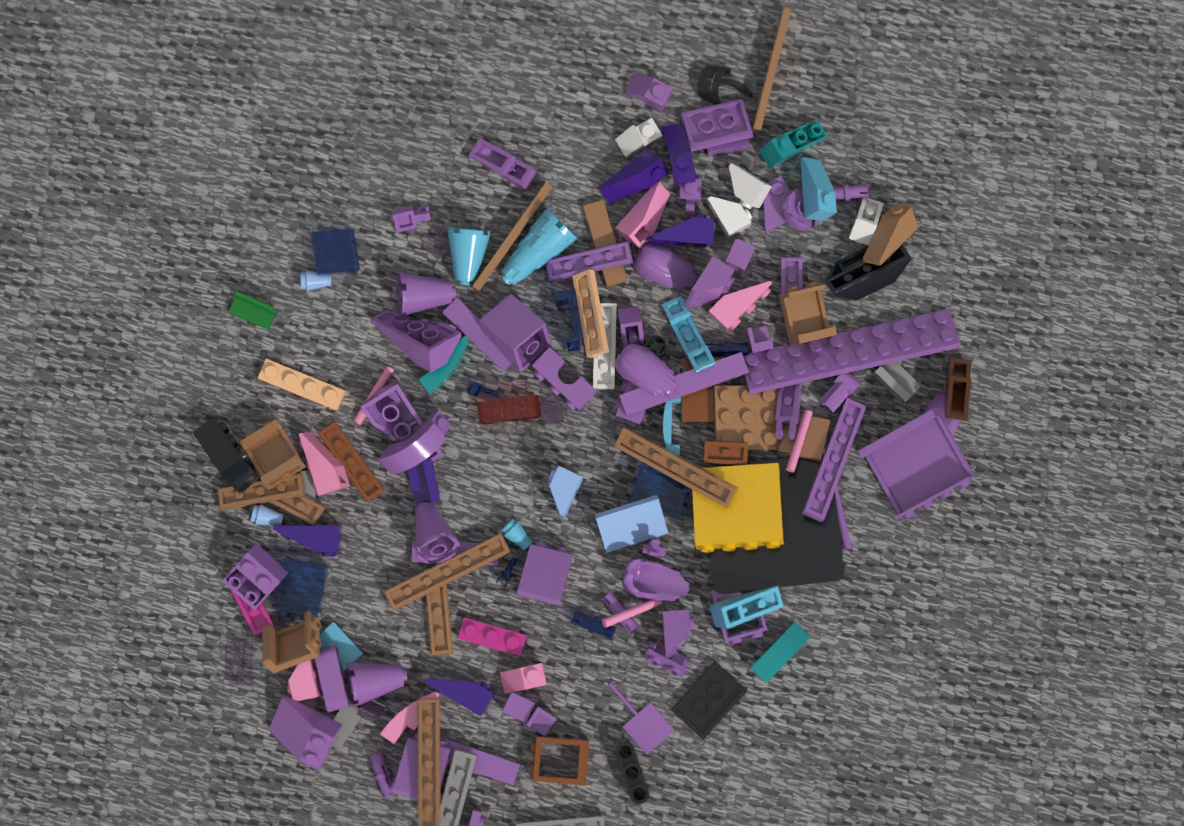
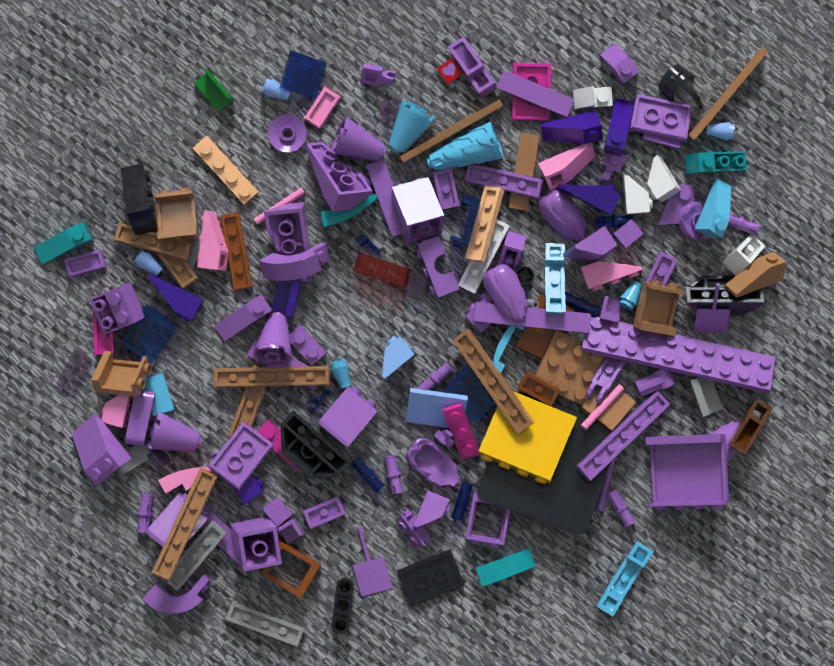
camera: 25 degrees right, 5 degrees up
(170, 536) = (64, 243): none -> teal slope
(201, 547) = (84, 263): none -> medium lavender tile
(347, 306) = (280, 126): none -> medium lavender dish
(370, 276) = (322, 107): none -> bright pink tile
(390, 525) = (243, 317): none -> medium lavender slope
(453, 667) = (240, 455): none -> medium lavender tile
(467, 523) = (306, 345): none -> medium lavender plate
(482, 178) = (450, 71): none -> red tile
(512, 750) = (256, 543): none -> medium lavender slope
(521, 626) = (309, 449): none -> black wedge
(523, 678) = (292, 490): bright pink slope -> none
(535, 297) = (446, 189): none -> medium lavender plate
(567, 685) = (324, 512): none -> medium lavender plate
(574, 160) = (537, 73): none -> dark pink tile
(579, 160) = (535, 93): none -> medium lavender tile
(616, 492) = (436, 377): none -> medium lavender pin
(630, 612) = (401, 479): bright pink bar -> none
(668, 533) = (461, 431): none -> dark pink plate
(702, 605) = (462, 500): none -> clear blue pin
(717, 251) = (612, 221): none -> clear blue axle
(745, 607) = (494, 519): medium azure slope -> none
(773, 316) = (631, 296): none -> medium azure cone
(783, 109) = (721, 130): none -> light blue cone
(867, 300) = (712, 319): none -> medium lavender piece
(868, 536) = (620, 508): none -> medium lavender axle
(906, 605) = (624, 578): none -> medium azure slope

